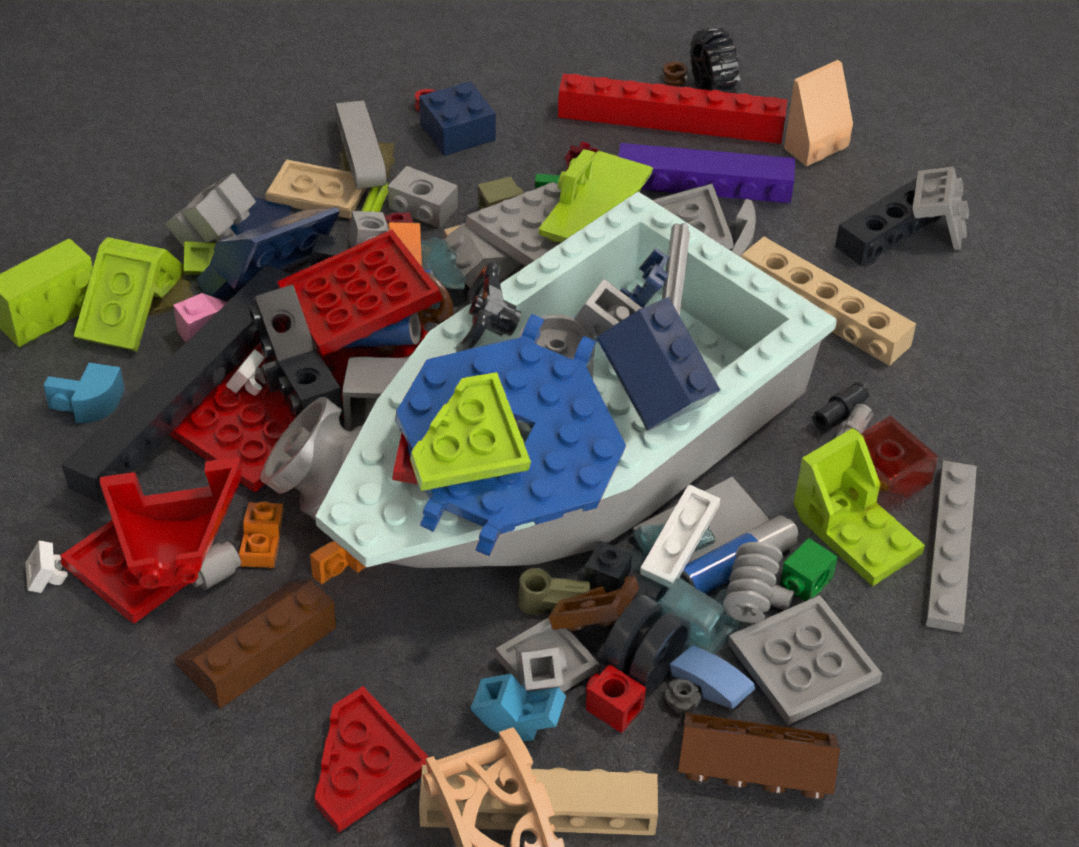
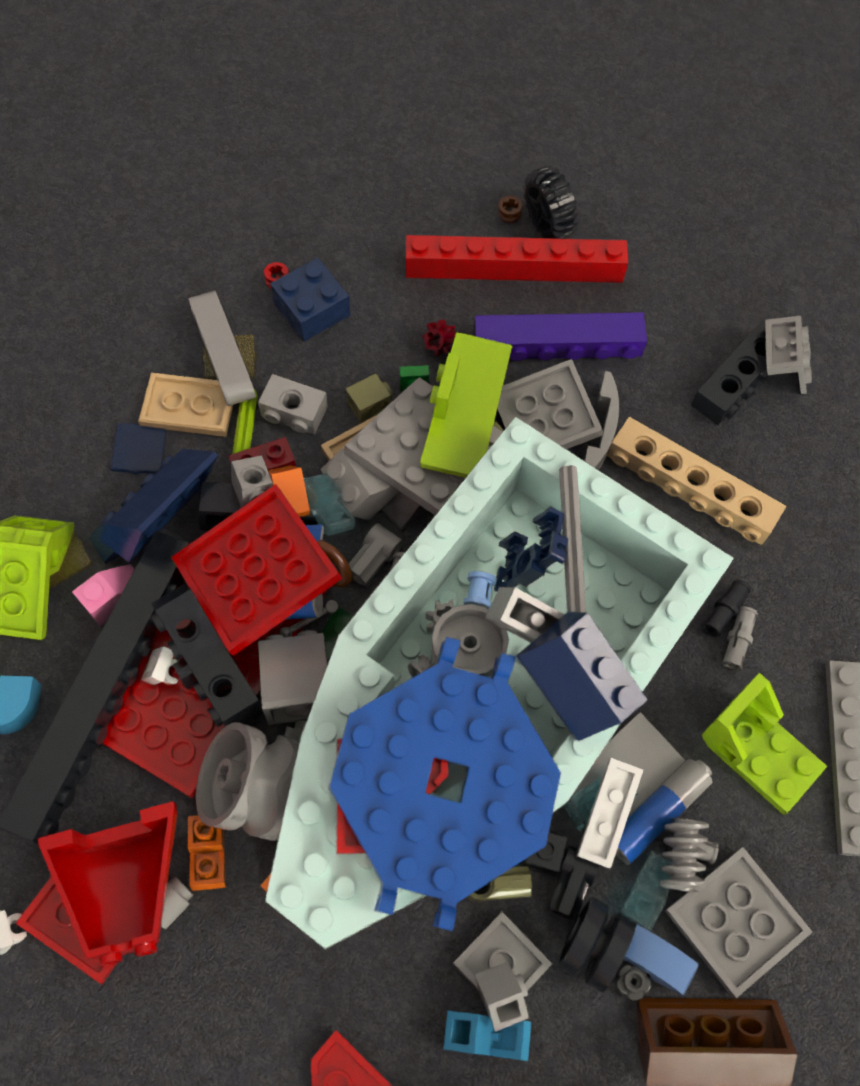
camera: 10 degrees left, 20 degrees up
(197, 256) = (86, 514): lime plate -> none
(212, 212) = (90, 465): light grey brick -> none
(259, 641) = (221, 986): reddish brown slope -> none
(470, 437) = (412, 815): lime plate -> none
(490, 309) = (398, 617): black piece -> none
(593, 607) = (542, 909): reddish brown wing -> none
(616, 710) = (588, 1001): red brick -> none
(692, 605) = (626, 895): clear light blue slope -> none
(808, 570) = (727, 817): green brick -> none
(819, 115) = (661, 260): light nougat slope -> none
(899, 458) = (792, 674): clear red slope -> none

